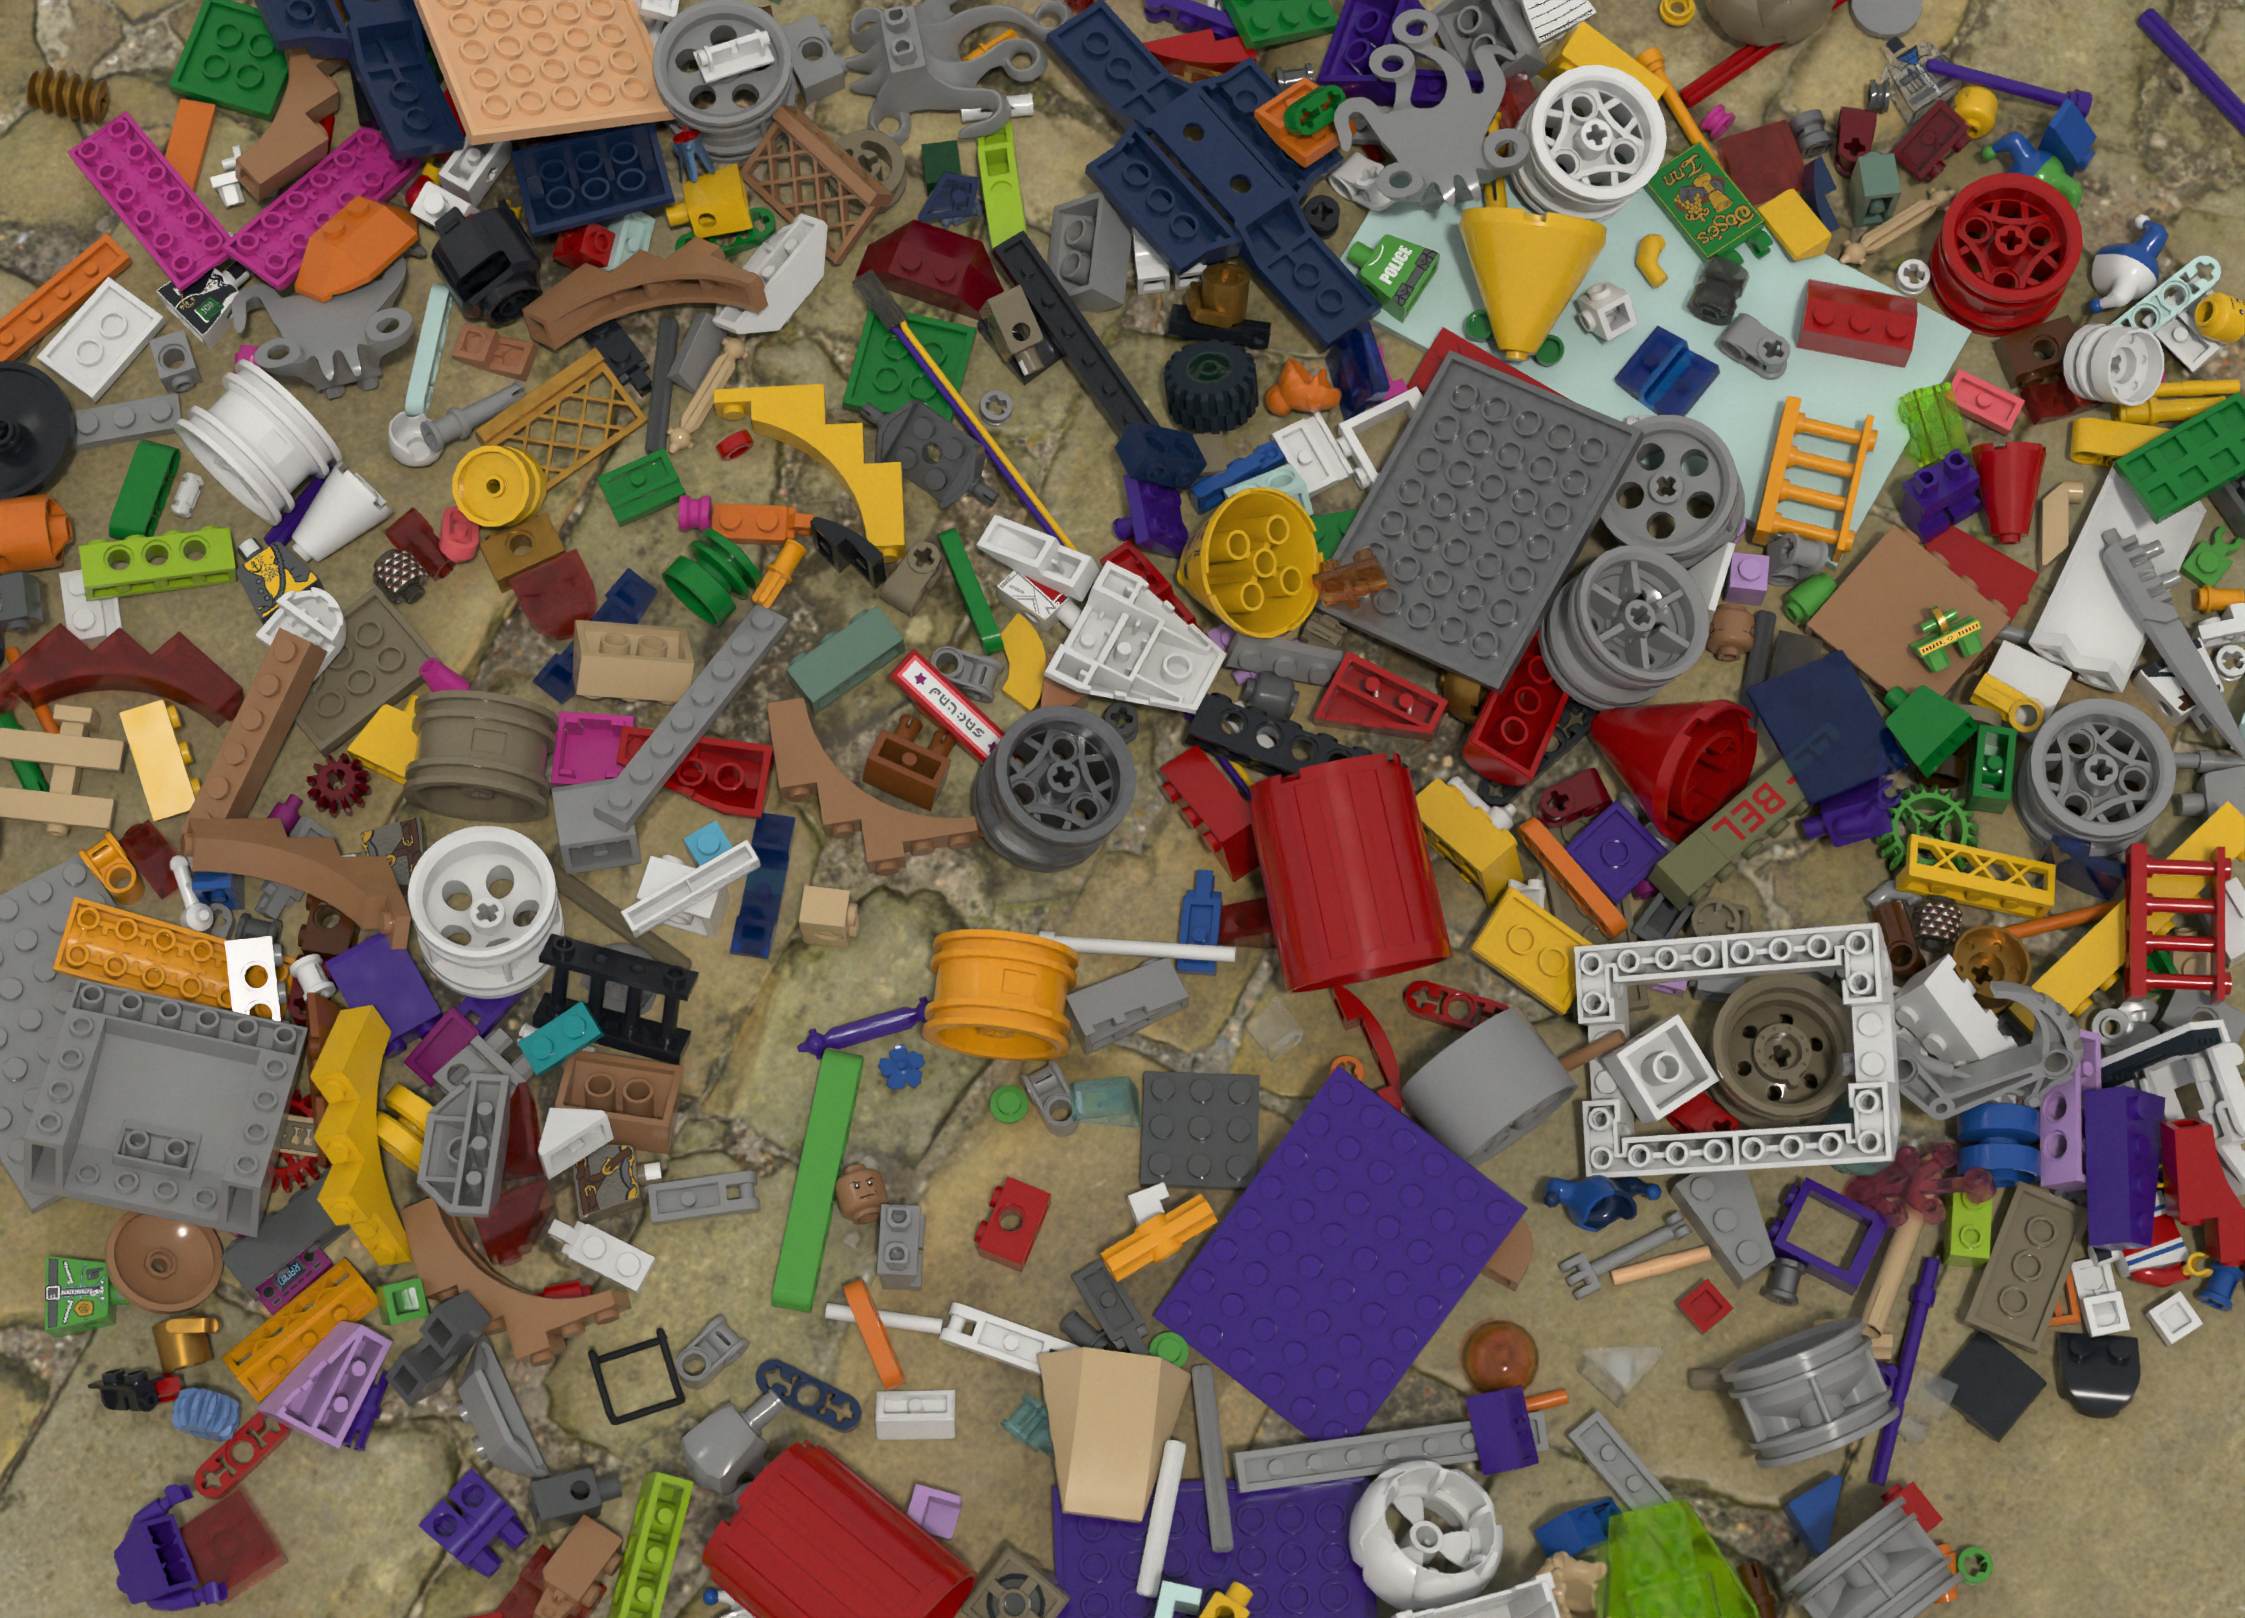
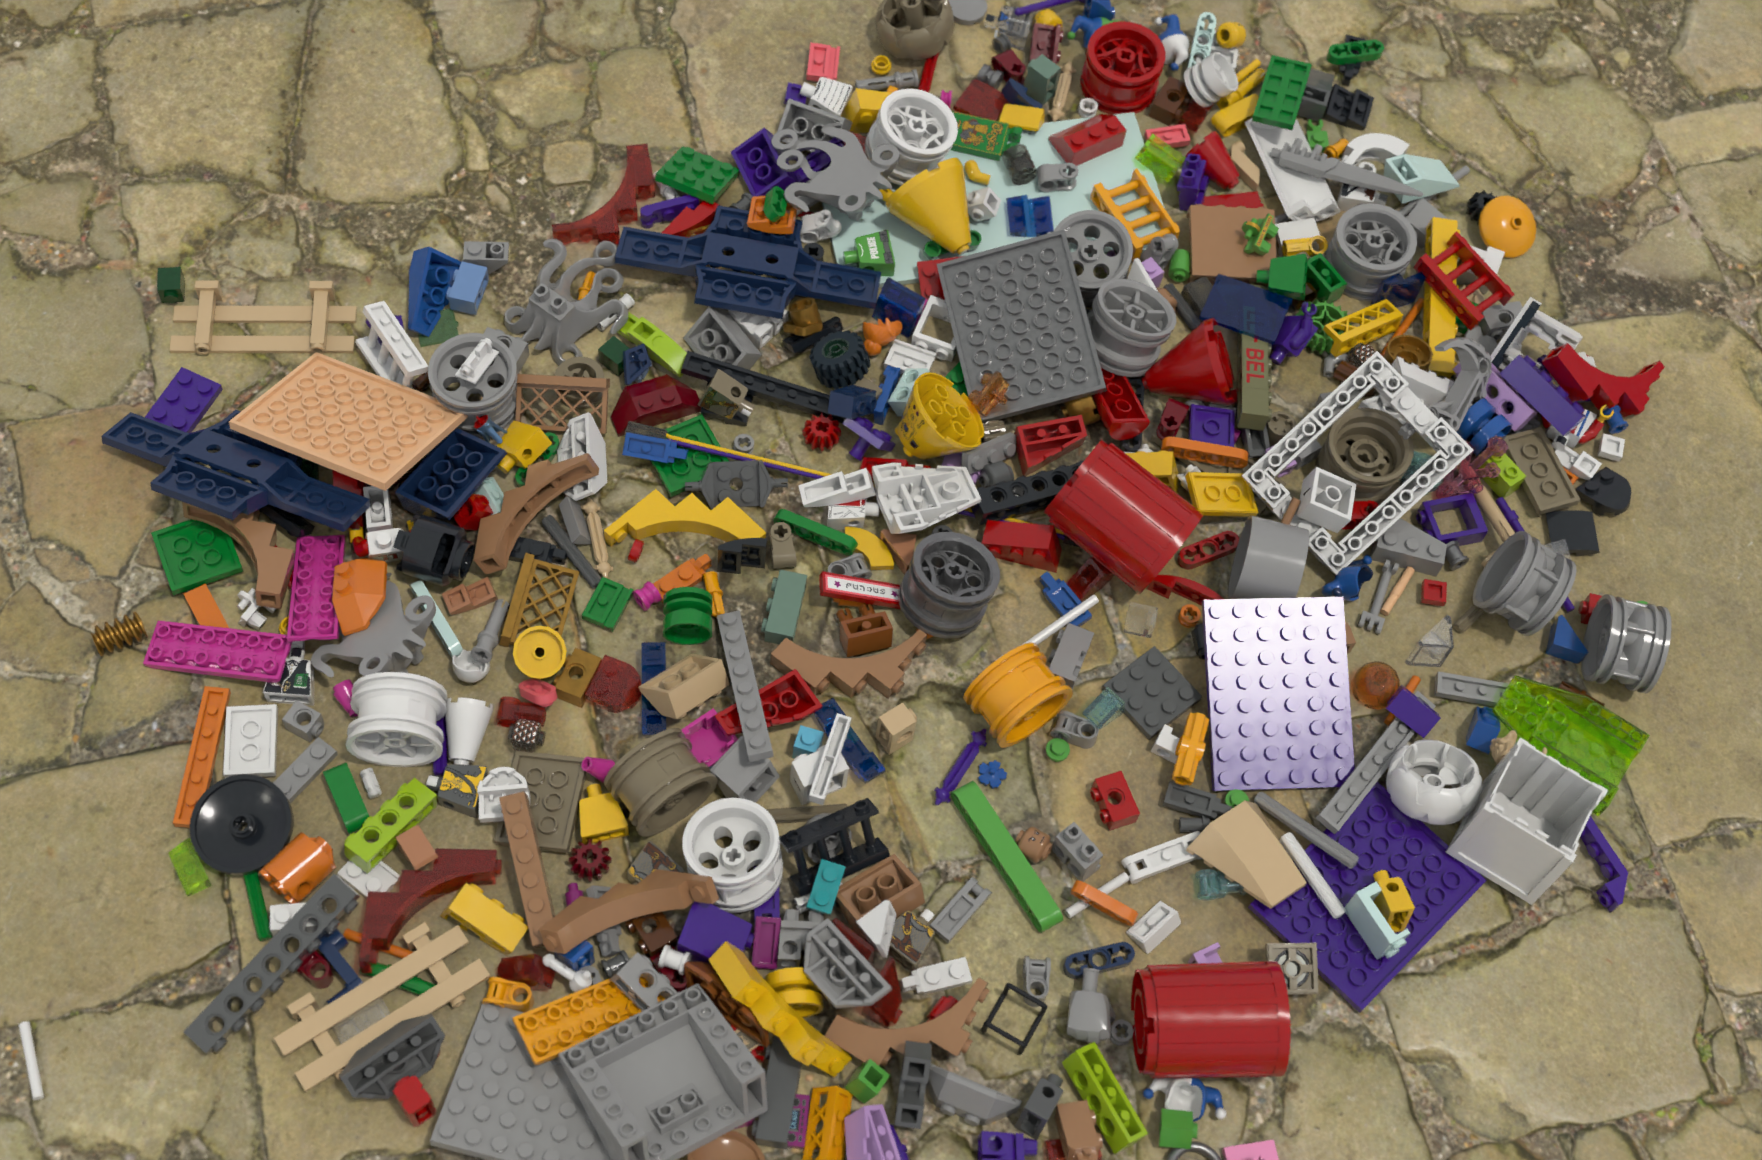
camera: 50 degrees left, 10 degrees down
(158, 613) = (416, 847): none -> nougat slope
(867, 328) = (652, 448): none -> blue hinge
(1090, 465) = (821, 432): none -> red gear
(1679, 43) = (897, 78): none -> light grey pin

